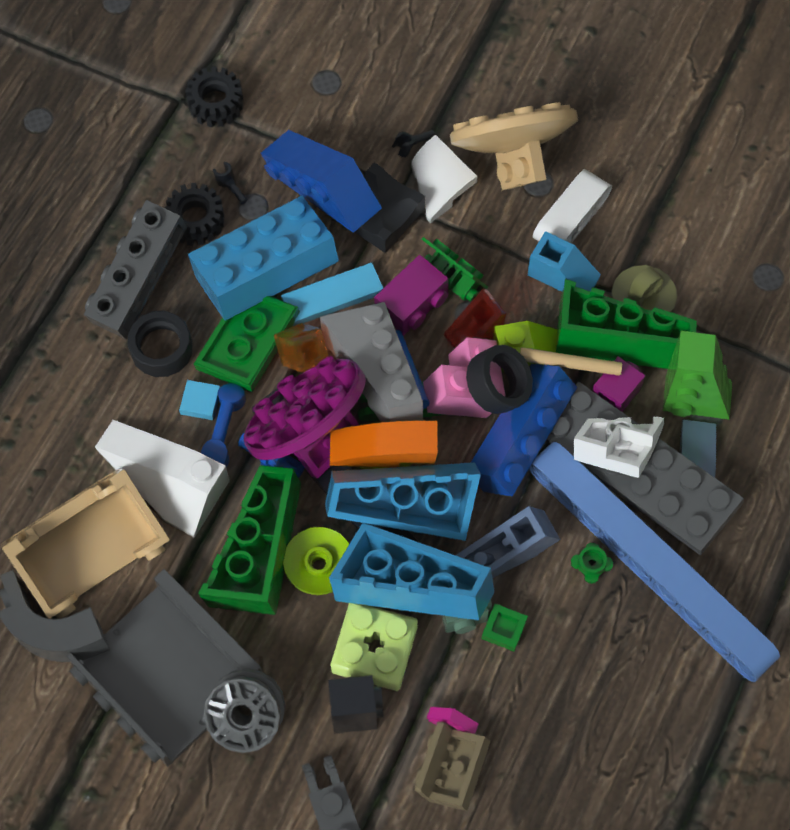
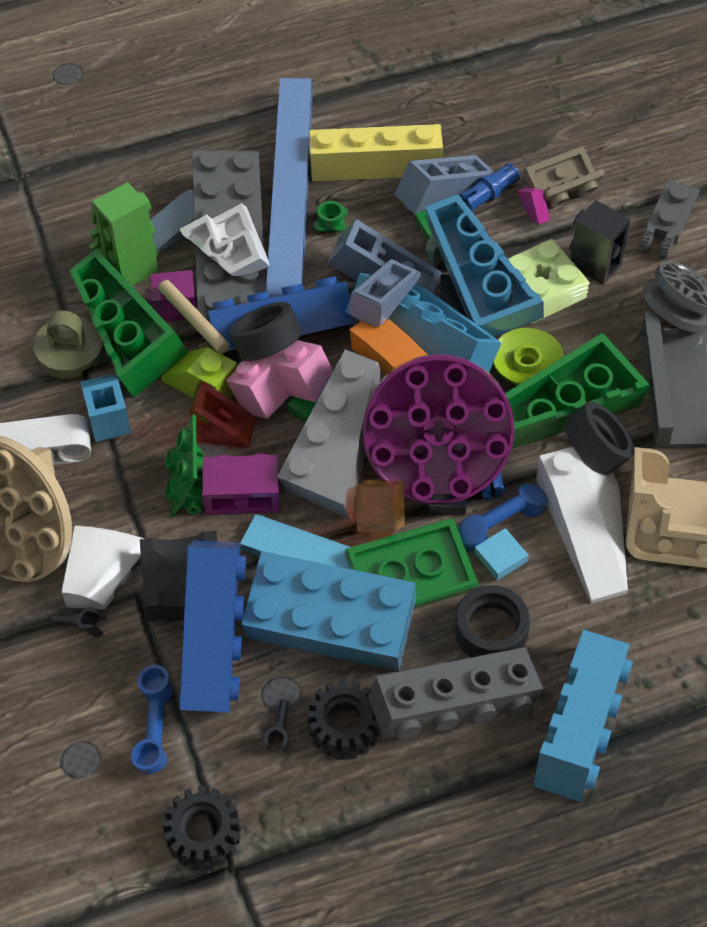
camera: 135 degrees left, 10 degrees down
(47, 324) = (581, 715): none -> dark azure wedge
(182, 536) = (599, 437): none -> black tyre
(283, 109) = (157, 688): none -> blue bar
(442, 466) = (382, 292): none -> sand blue slope
(504, 706) = (490, 186): none -> blue pin
(540, 676) = (438, 179): none -> sand blue slope
(621, 649) = (371, 151): none -> light yellow brick

